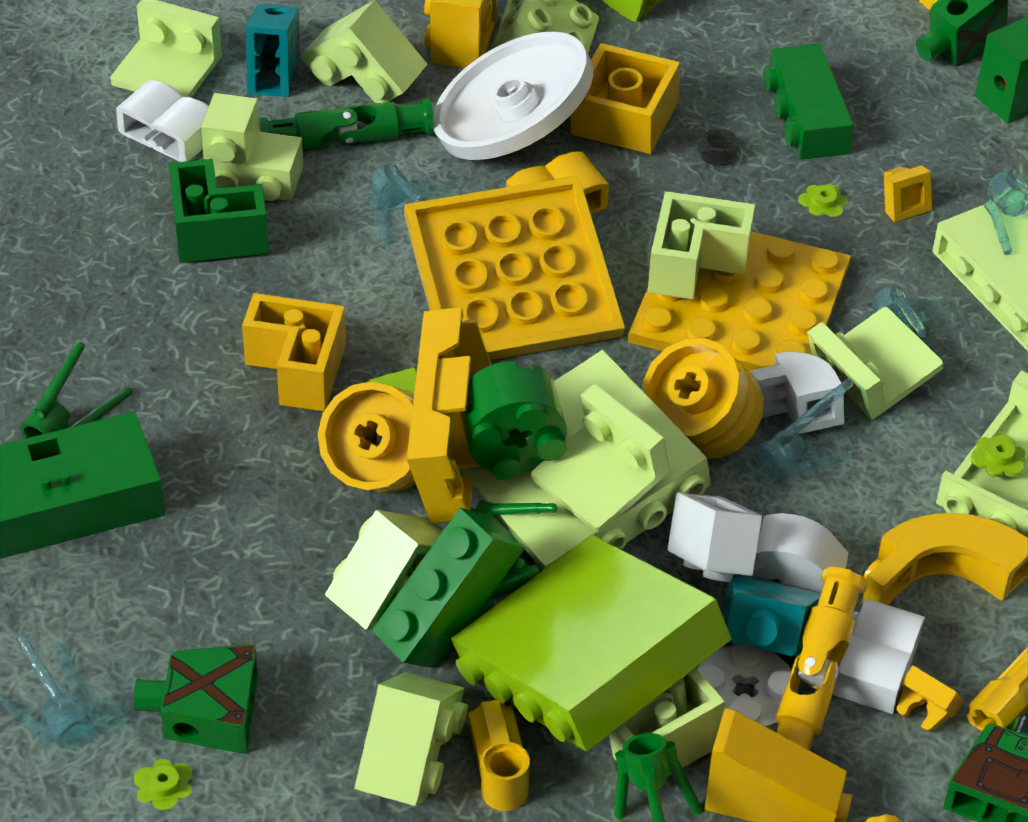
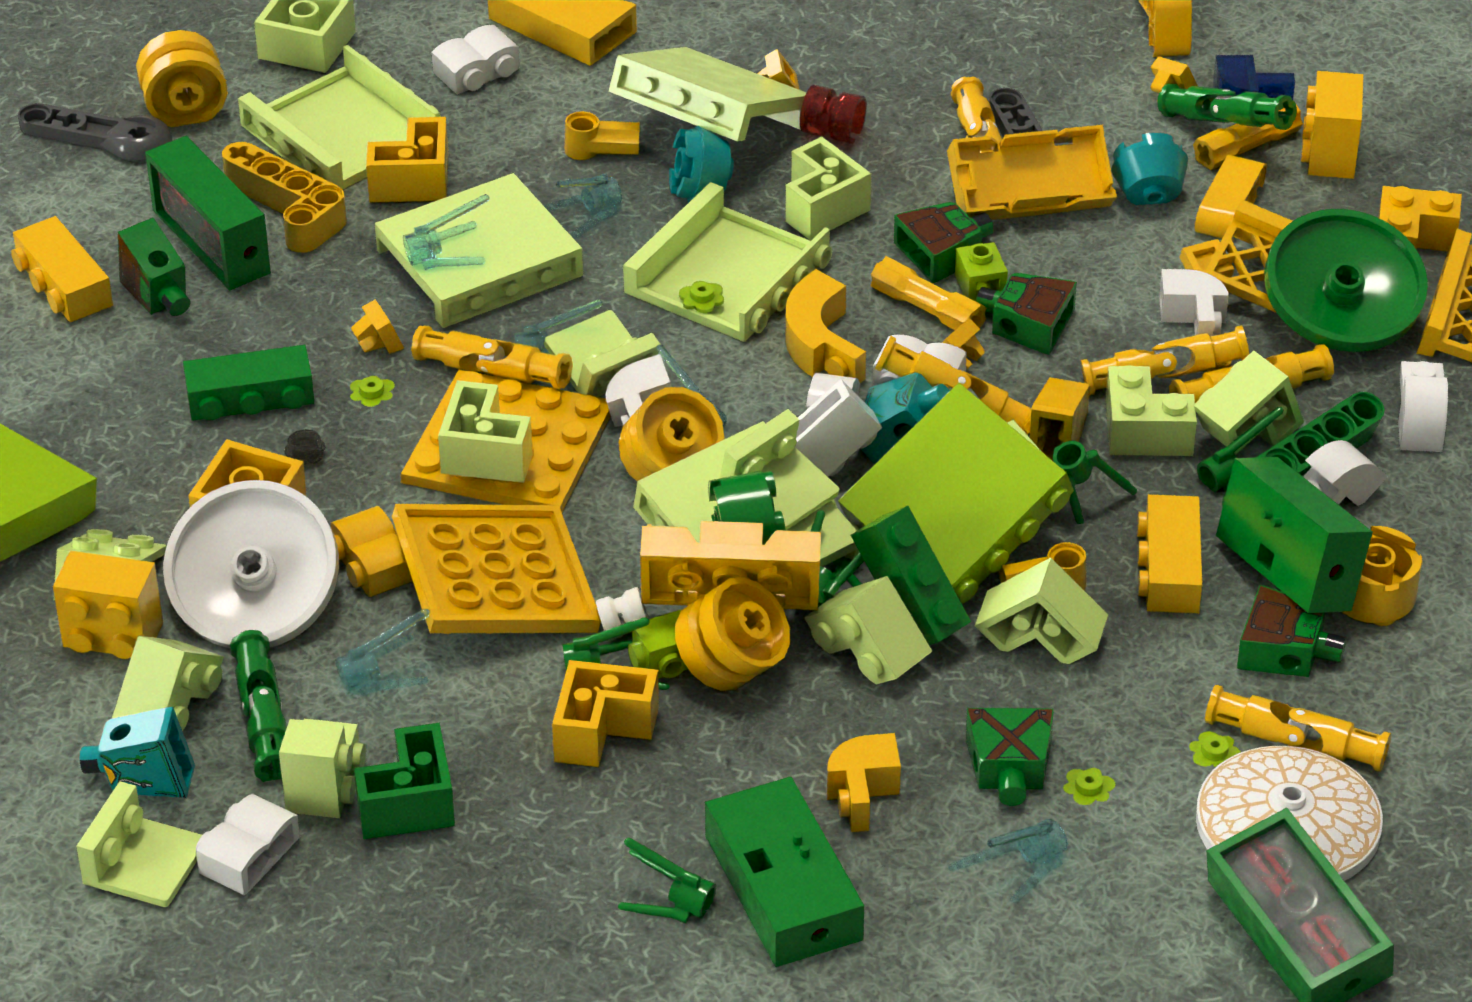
camera: 90 degrees left, 5 degrees down
(188, 555) = (861, 770): none -> yellow brick
(390, 349) = (587, 648): none -> green plant
(861, 272) = (487, 356): none -> yellow piece

